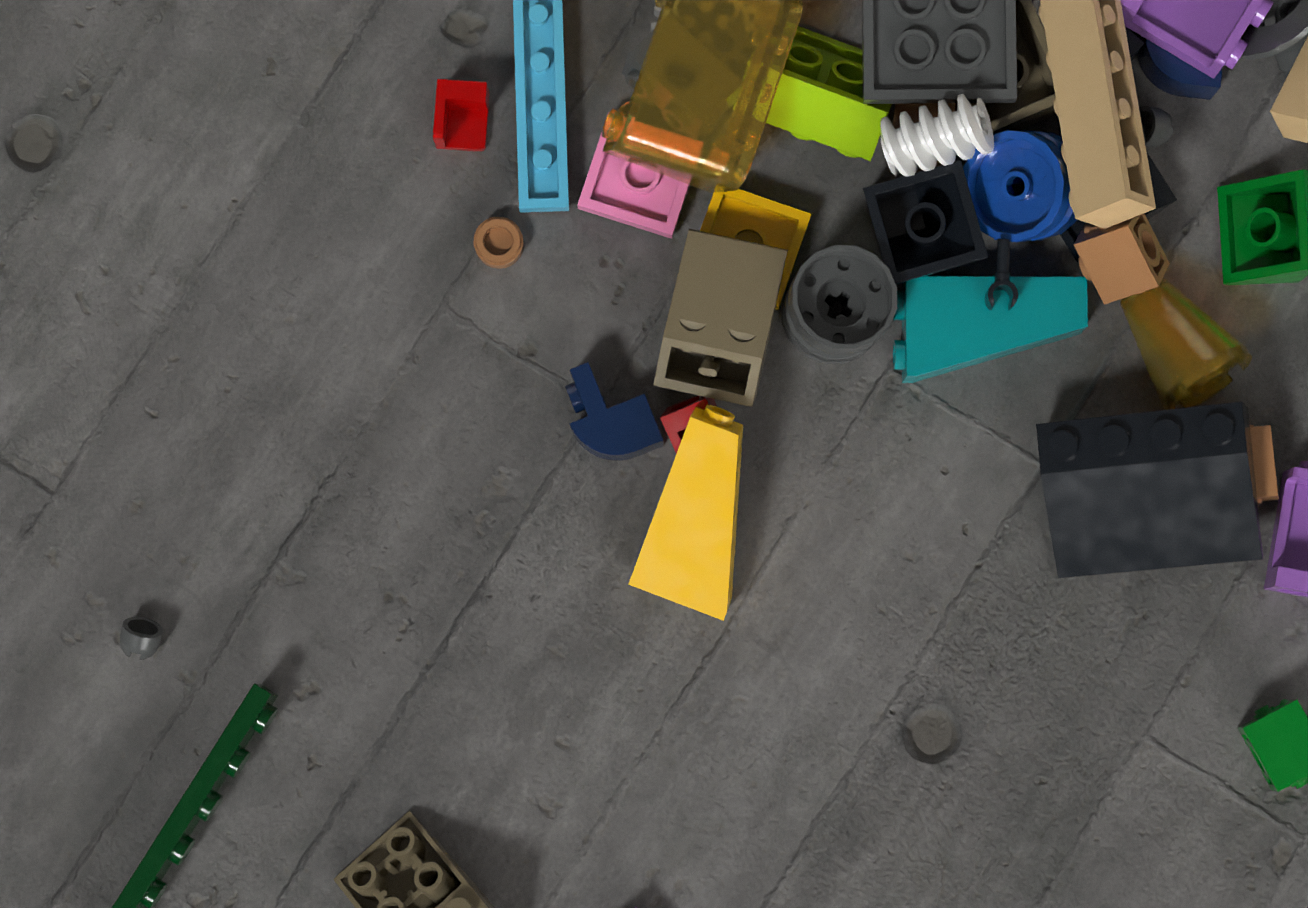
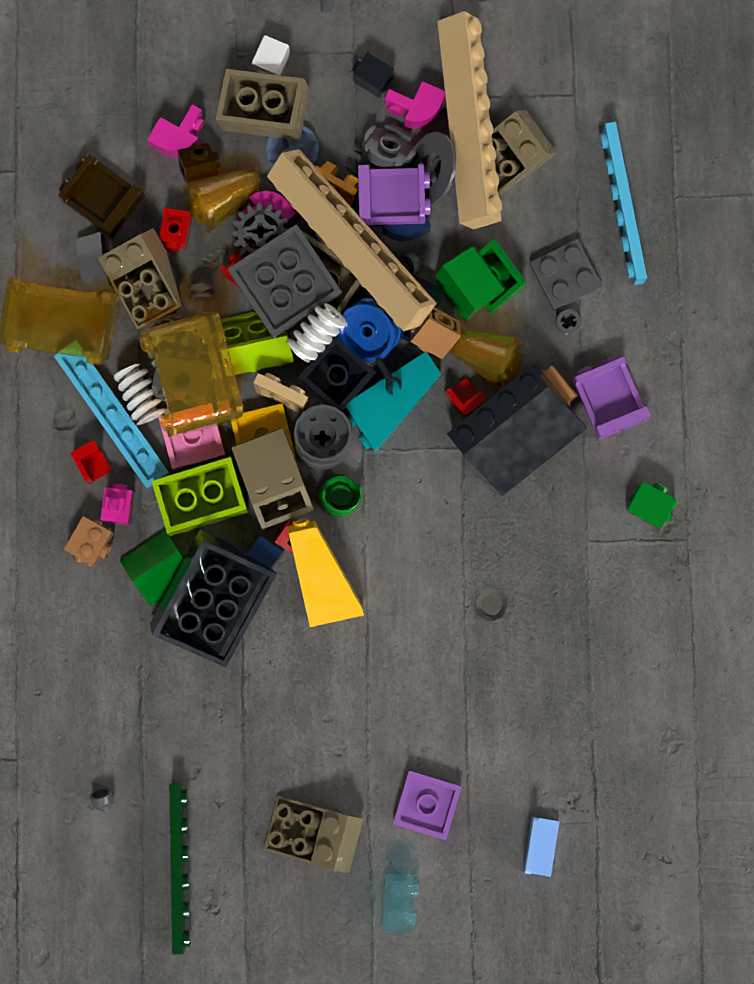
camera: 35 degrees left, 0 degrees up
(379, 235) = (90, 542): none -> medium nougat head
(455, 342) = (153, 567): none -> green slope
(458, 206) = (117, 505): none -> dark pink brick
(498, 242) = (146, 509): medium nougat tile -> none
(506, 443) = (212, 599): none -> black slope
(590, 274) = (199, 496): none -> lime brick
(600, 57) = (138, 394): none -> white piece
(806, 413) = (339, 496): none -> green hair
(830, 212) = (292, 397): none -> tan plate
(1098, 388) = (465, 398): none -> red panel
(1222, 215) = (469, 283): none -> green slope

